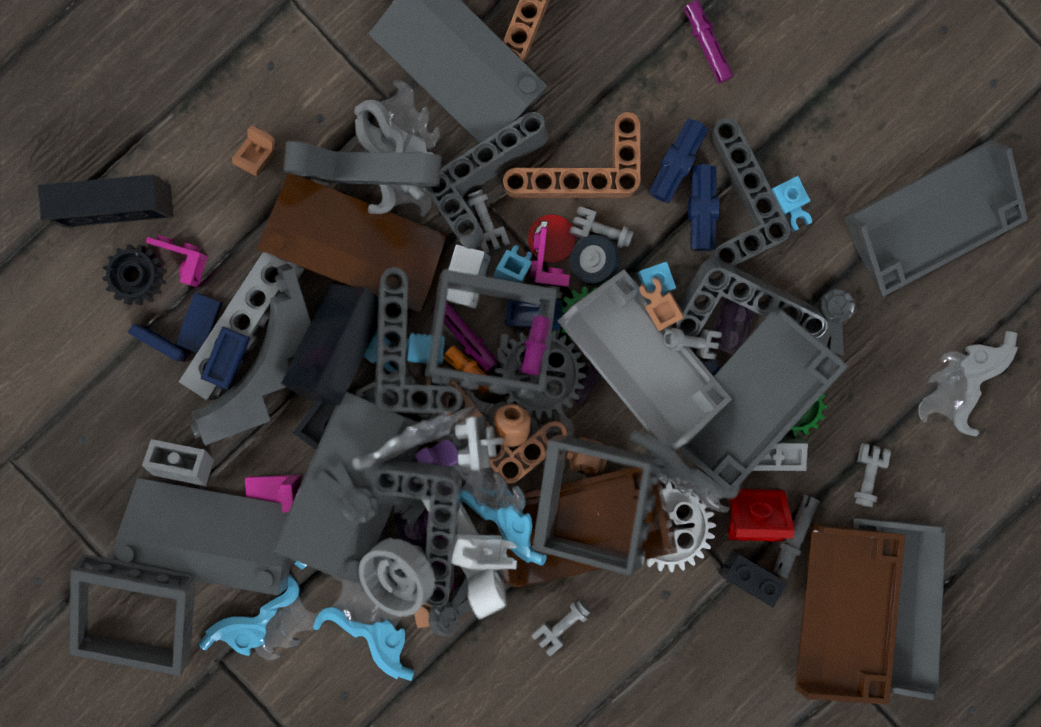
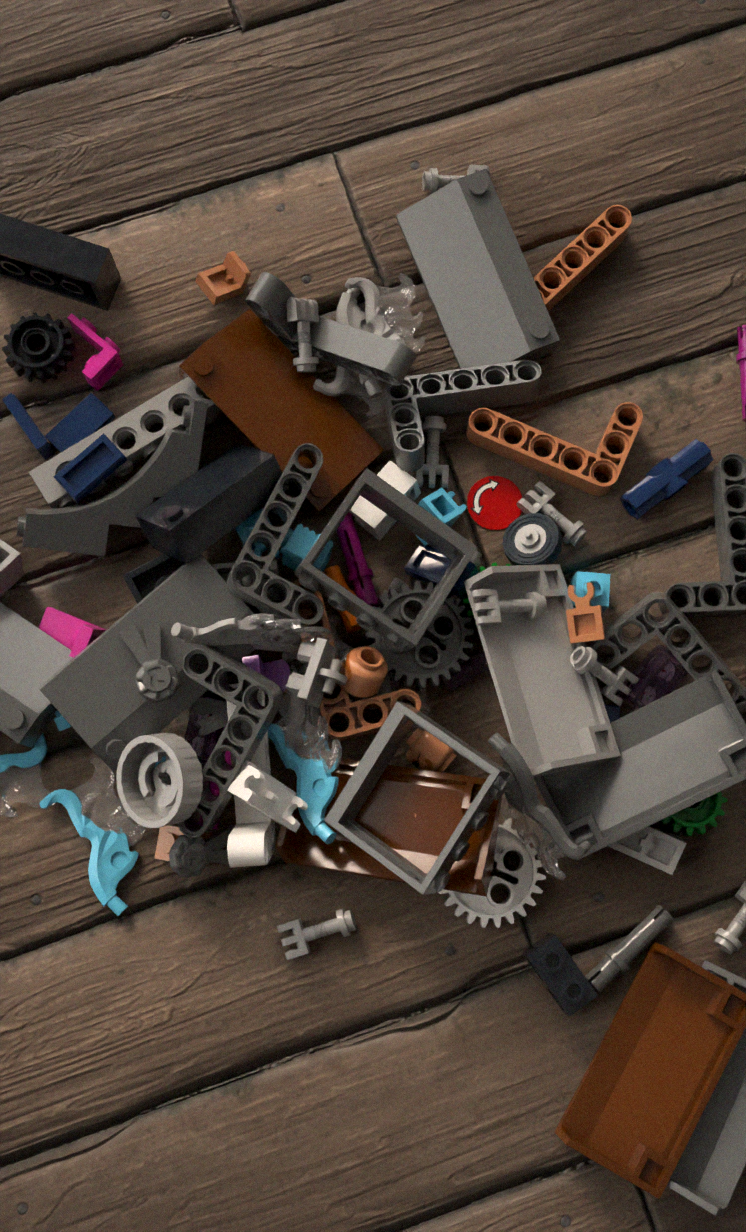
camera: 25 degrees right, 10 degrees down
(333, 157) = (304, 313): none -> light grey hinge
(536, 345) = (429, 592): magenta axle -> none
(553, 276) = (480, 537): dark pink bracket -> none
(617, 315) = (532, 605): none -> light grey hinge
(703, 207) = (673, 539): dark blue piece -> none
(760, 516) = (596, 905): red bracket -> none

